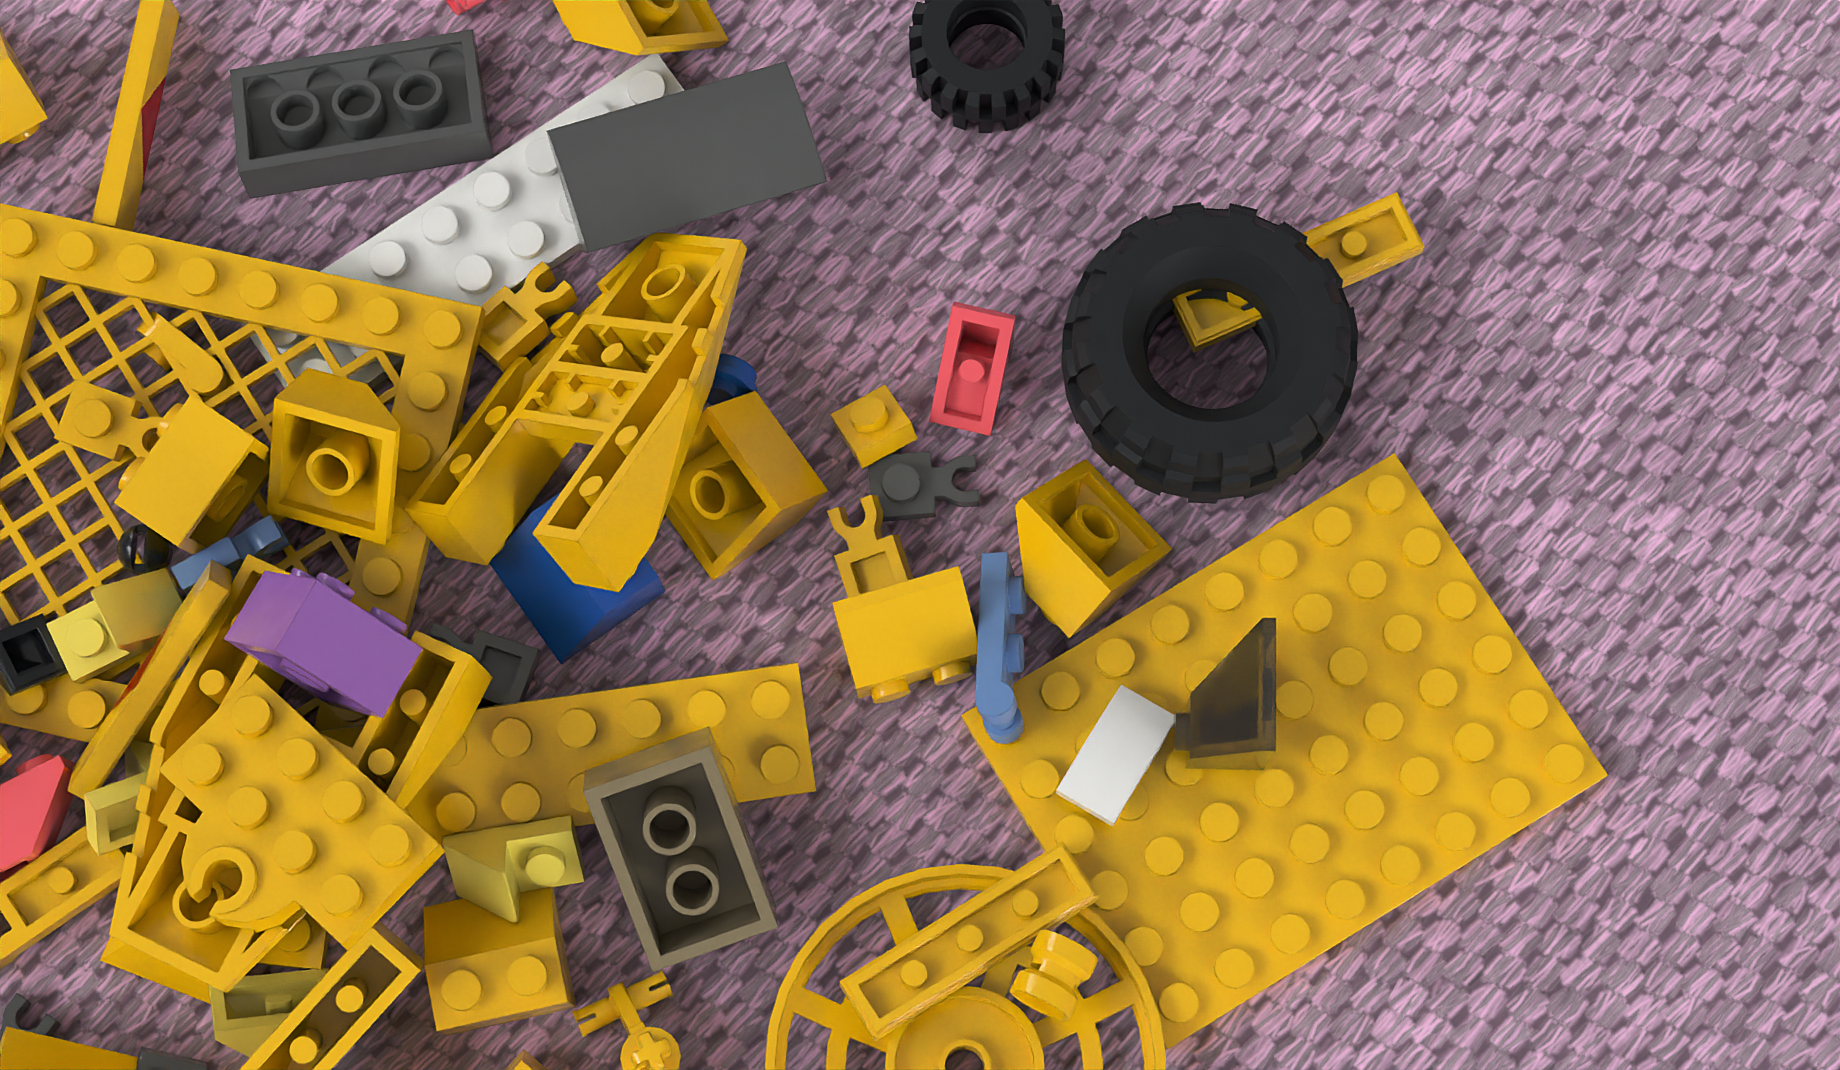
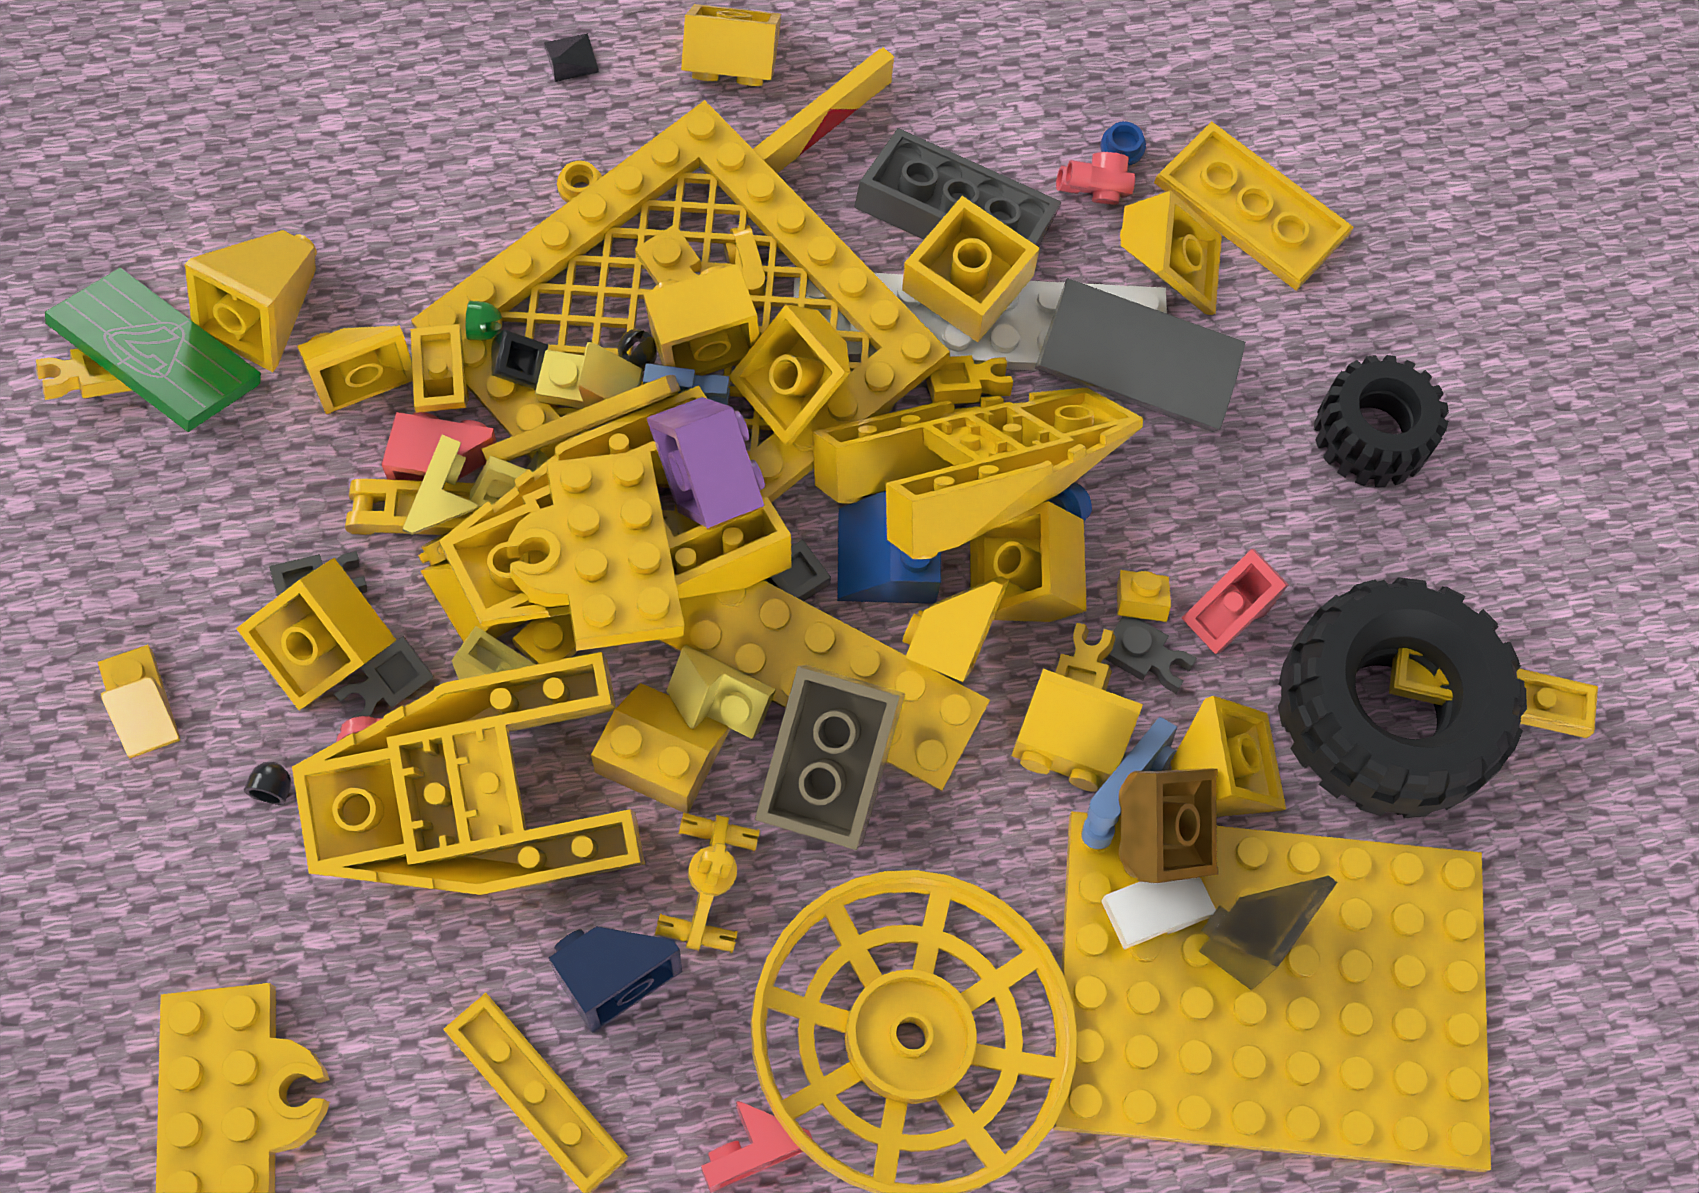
camera: 25 degrees right, 10 degrees down
(62, 888) = (432, 503): none -> light yellow slope
(98, 924) = (432, 551): none -> yellow piece
(435, 197) = (969, 268): none -> yellow brick
(708, 618) = (954, 629): none -> yellow slope
(968, 941) = (975, 952): yellow tile -> none
(1055, 971) = (1017, 1013): yellow wheel -> none
(1071, 670) = (1169, 824): none -> pearl gold slope

